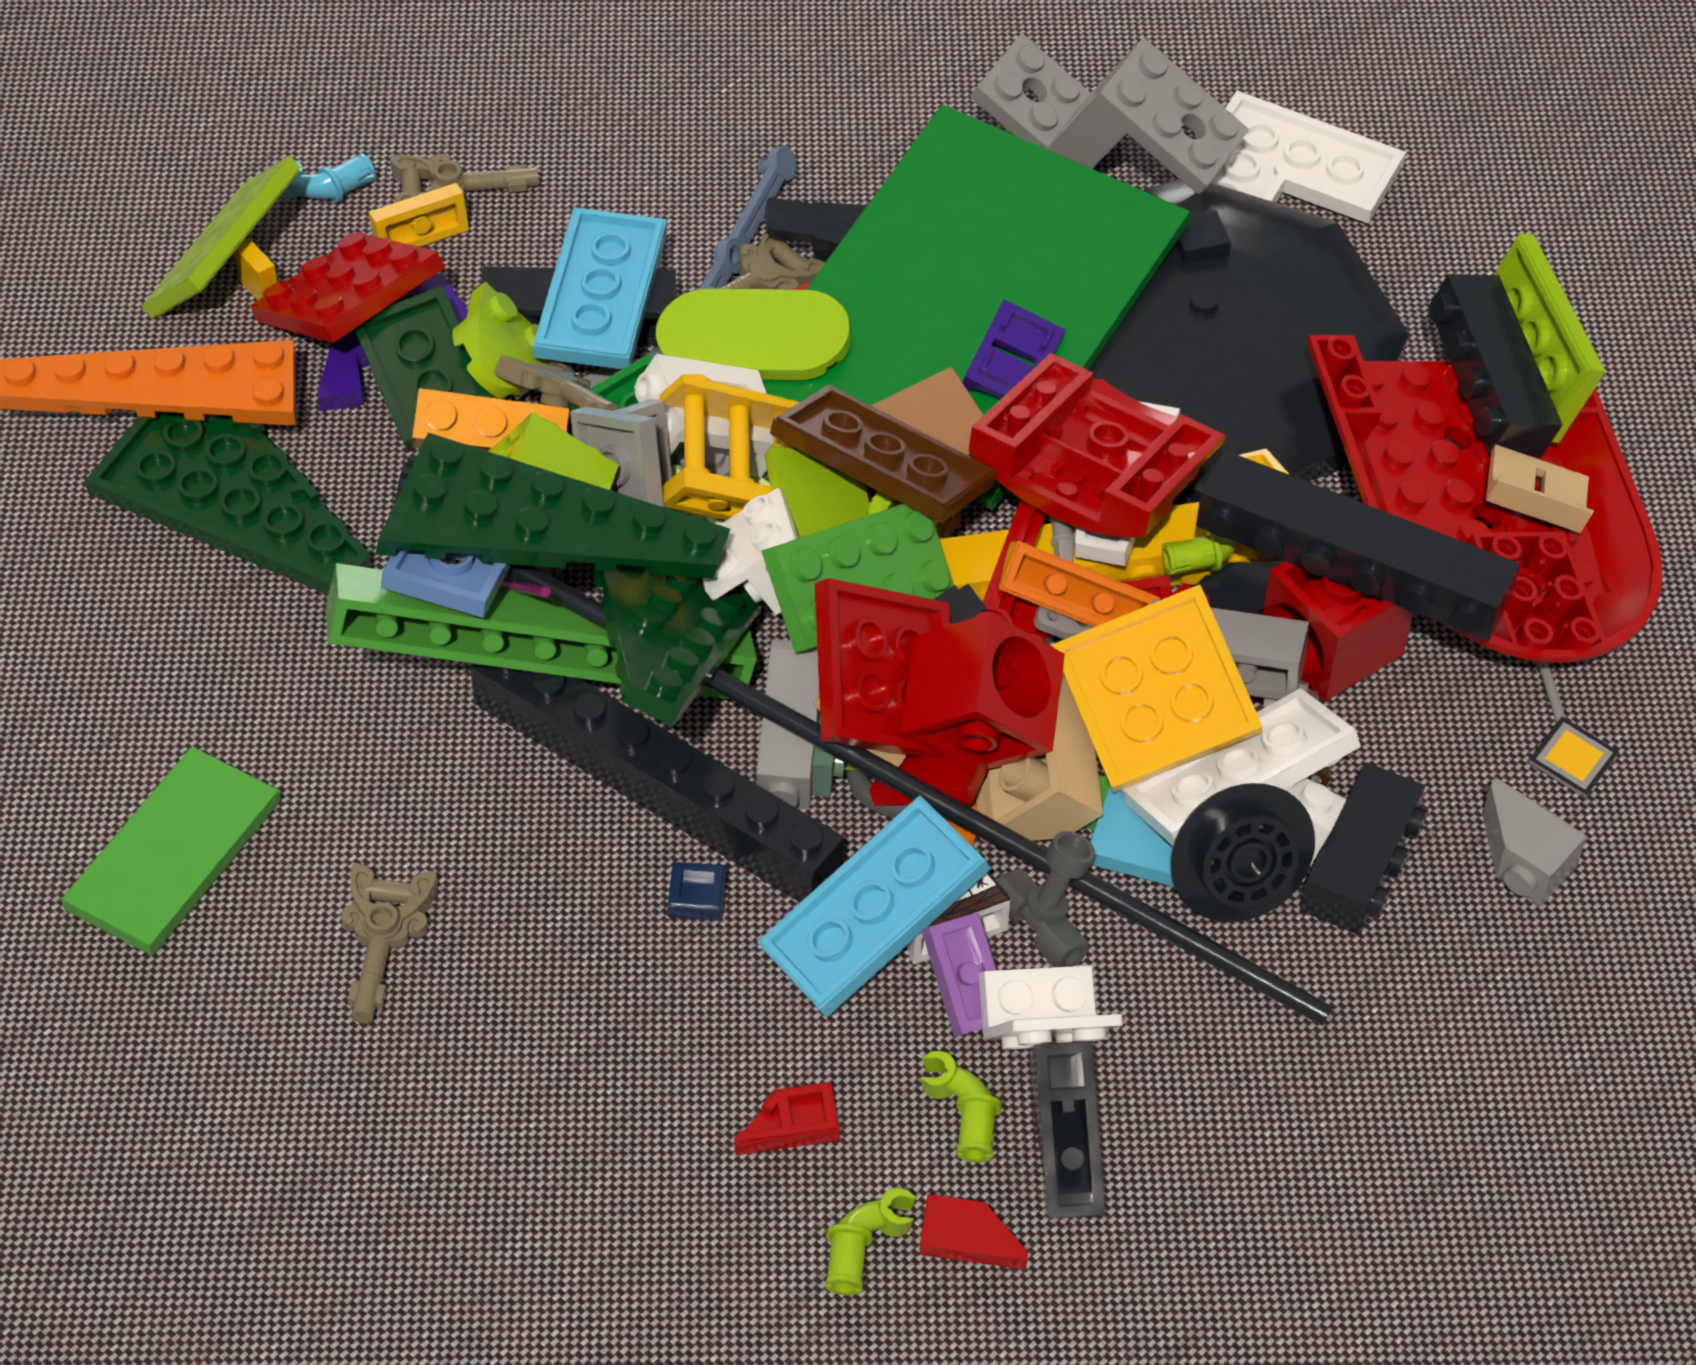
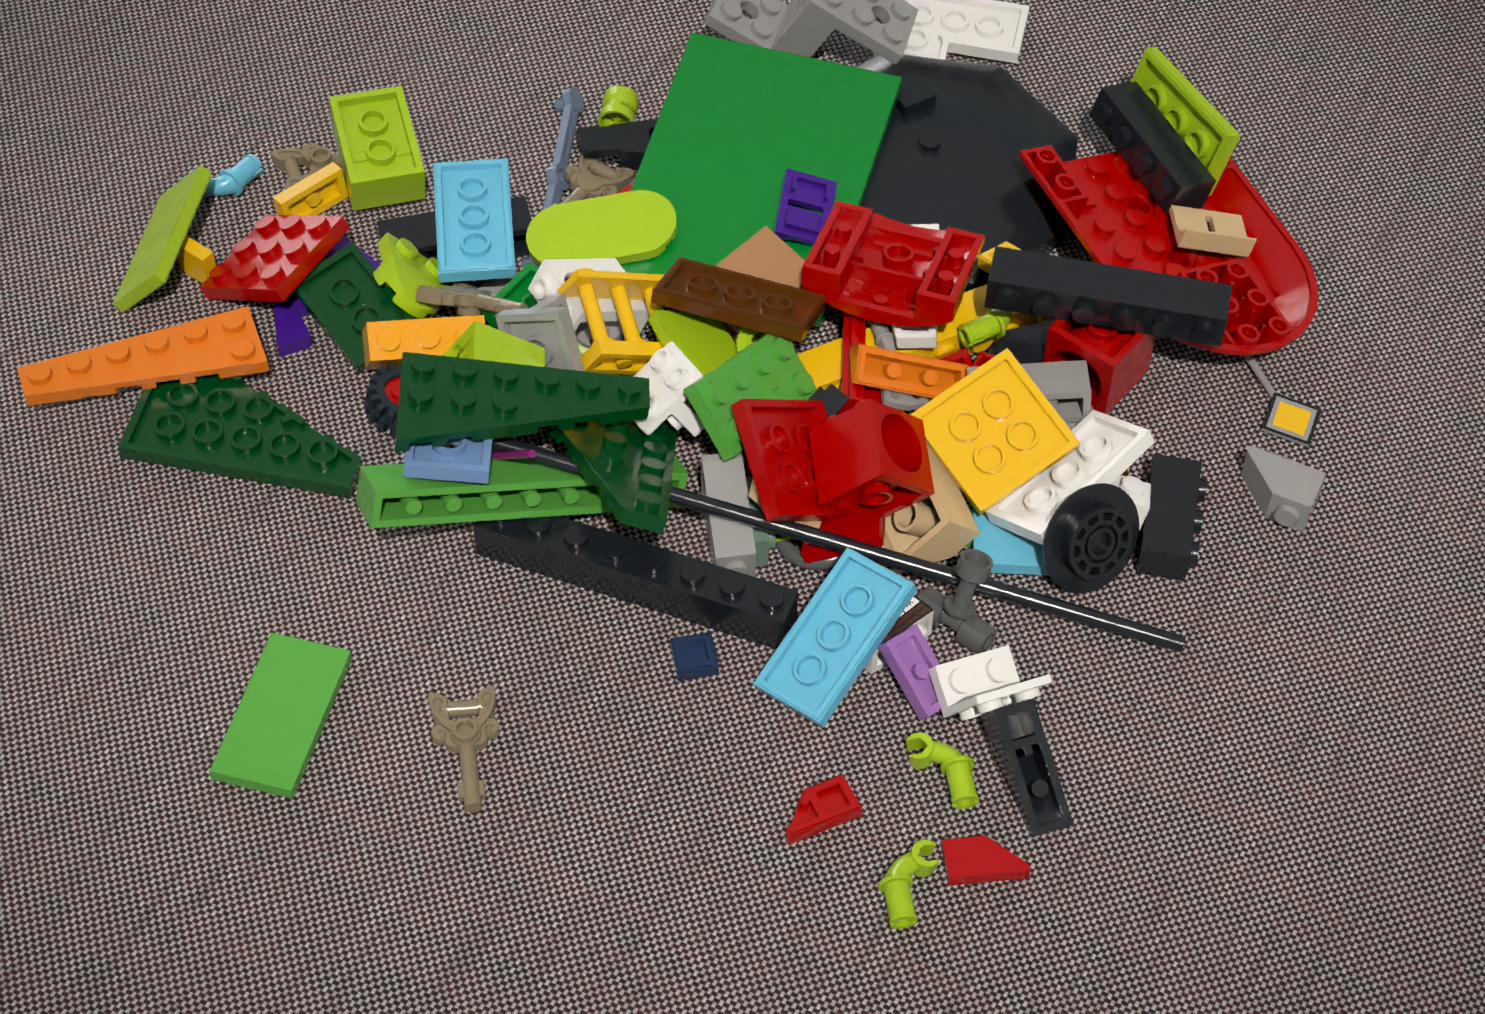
camera: 15 degrees left, 0 degrees up
(515, 175) = (377, 148): none -> lime piece
(835, 181) = (618, 106): none -> lime wheel

